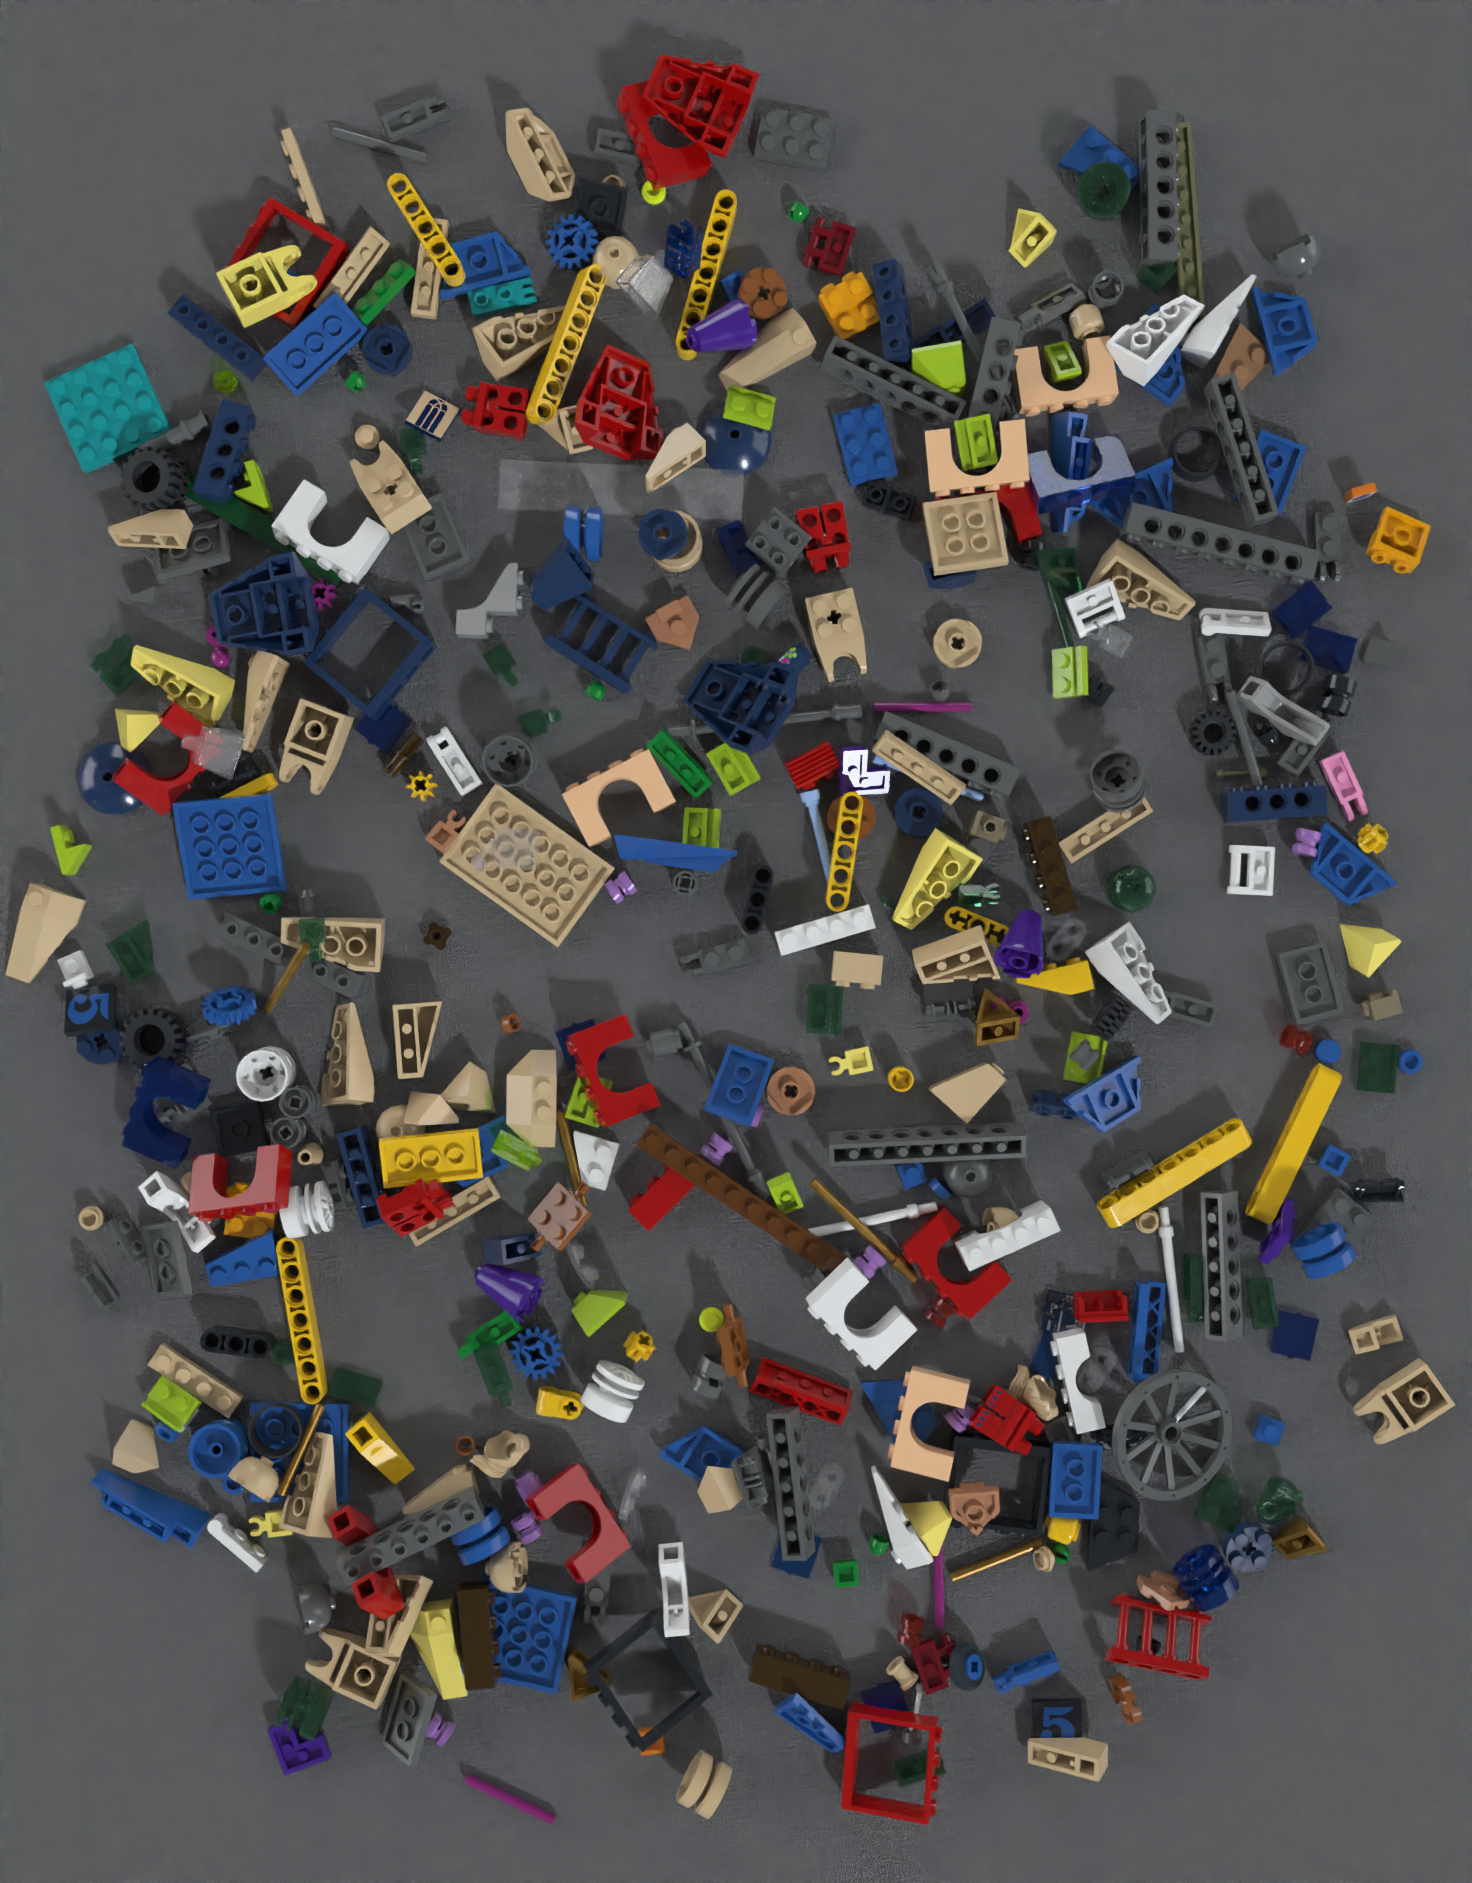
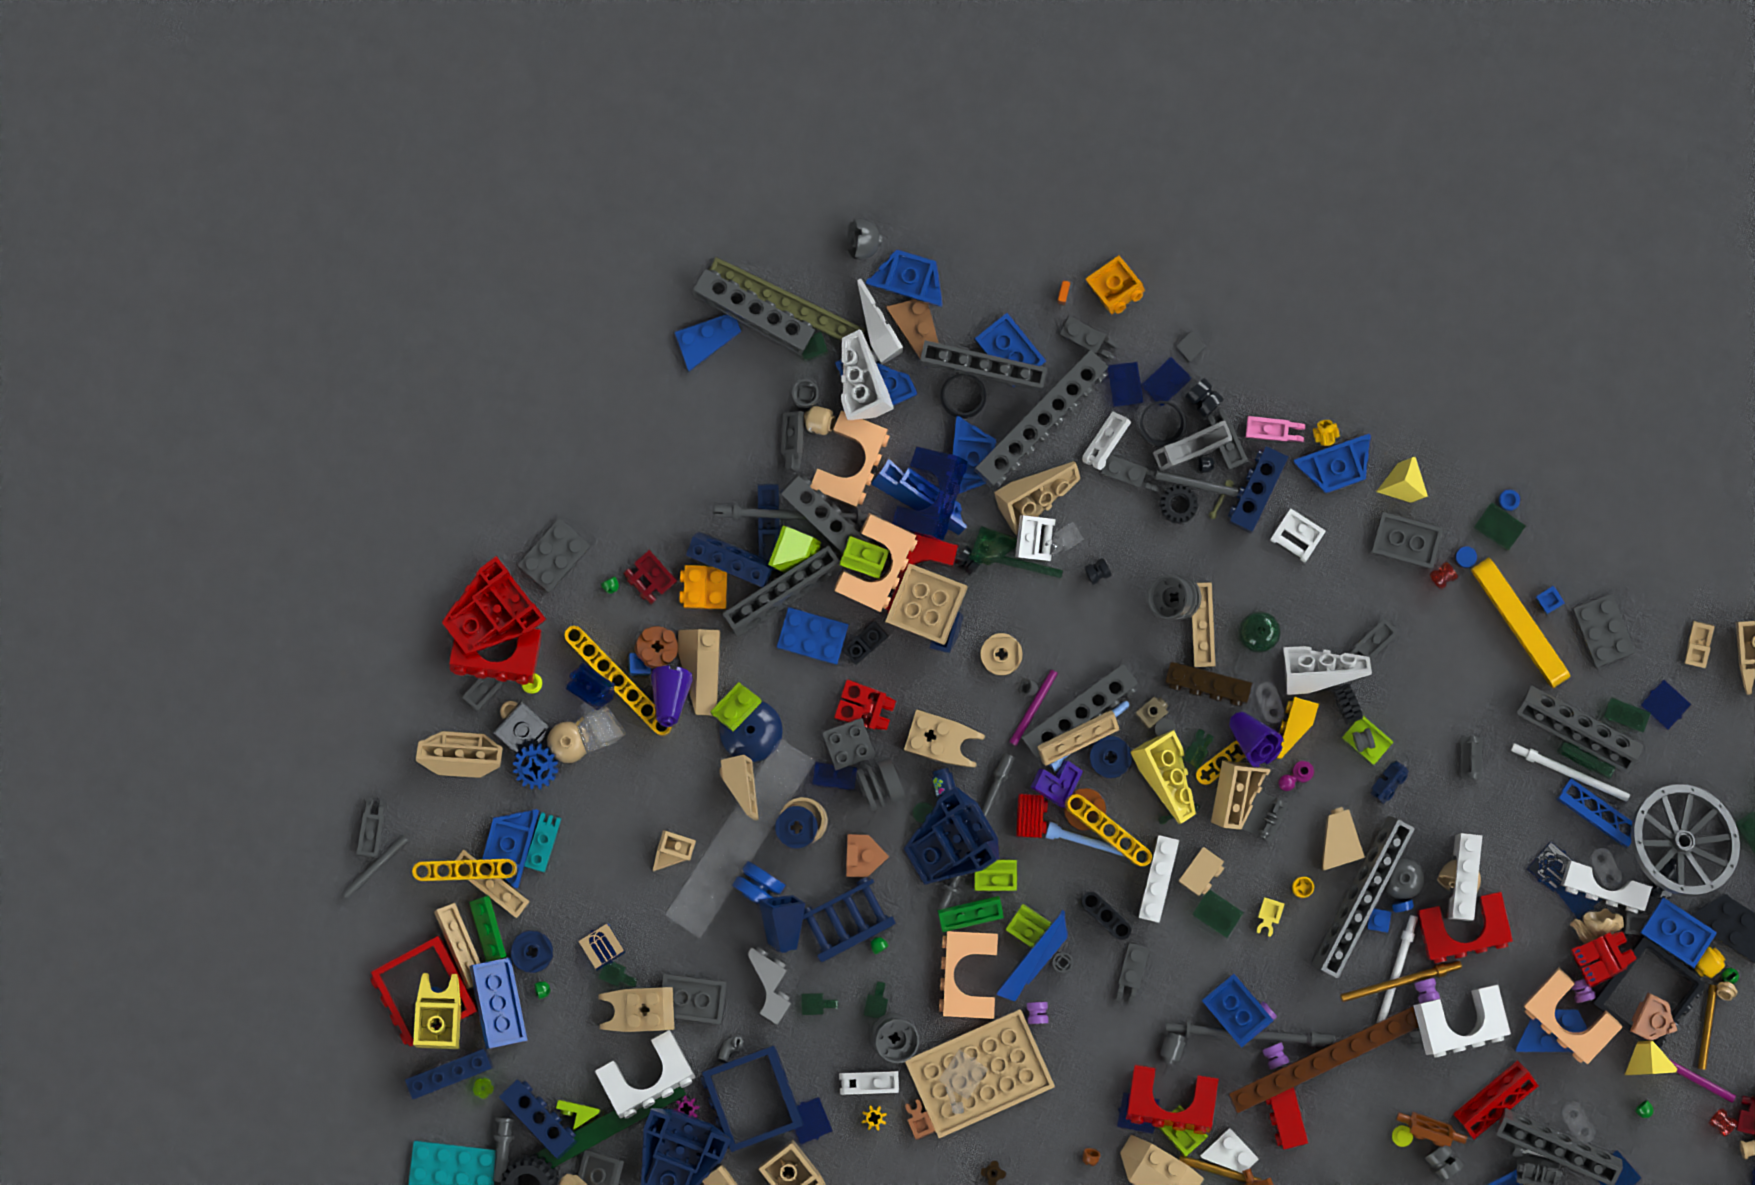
camera: 50 degrees left, 5 degrees down
(300, 171) = (377, 941): tan plate -> none
(367, 437) = (588, 1005): tan plate -> none
(403, 754) = (842, 1118): dark brown axle -> none
(498, 410) = (623, 900): red hips -> none
(516, 340) = (583, 849): tan wedge -> none
(557, 350) = (611, 825): yellow beam -> none
(619, 408) = (680, 802): red wedge -> none
(785, 1193) = (1339, 1024): lime slope -> none
(788, 1104) = (1274, 981): nougat plate -> none
(845, 1573) = (1652, 1146): green plate -> none
(904, 1539) = (1649, 1086): white wedge -> none
(941, 1306) = (1493, 955): clear red wheel -> none
(997, 1024) = (1303, 792): pearl gold slope -> none
(1031, 236) = (731, 425): light yellow slope -> none
(1062, 362) = (837, 455): lime slope -> none
(1070, 672) = (1072, 584): lime plate -> none
(1095, 178) = (737, 365): clear green wheel -> none
(1100, 1306) = (1559, 837): red hinge -> none
(1109, 1097) = (1406, 739): blue wing -> none
(1147, 1221) = (1516, 765): tan plate -> none
(1174, 1173) = (1491, 724): yellow beam -> none
(1268, 1430) = (1725, 765): blue plate -> none
(1280, 1233) = (1580, 672): dark purple plate -> none
(1306, 842) = (1300, 483): medium lavender wheel -> none
(1323, 1250) = (1609, 649): blue wheel -> none
(1377, 1192) = (1591, 583): black hinge -> none
(1381, 1005) = (1454, 498): dark tan brick -> none

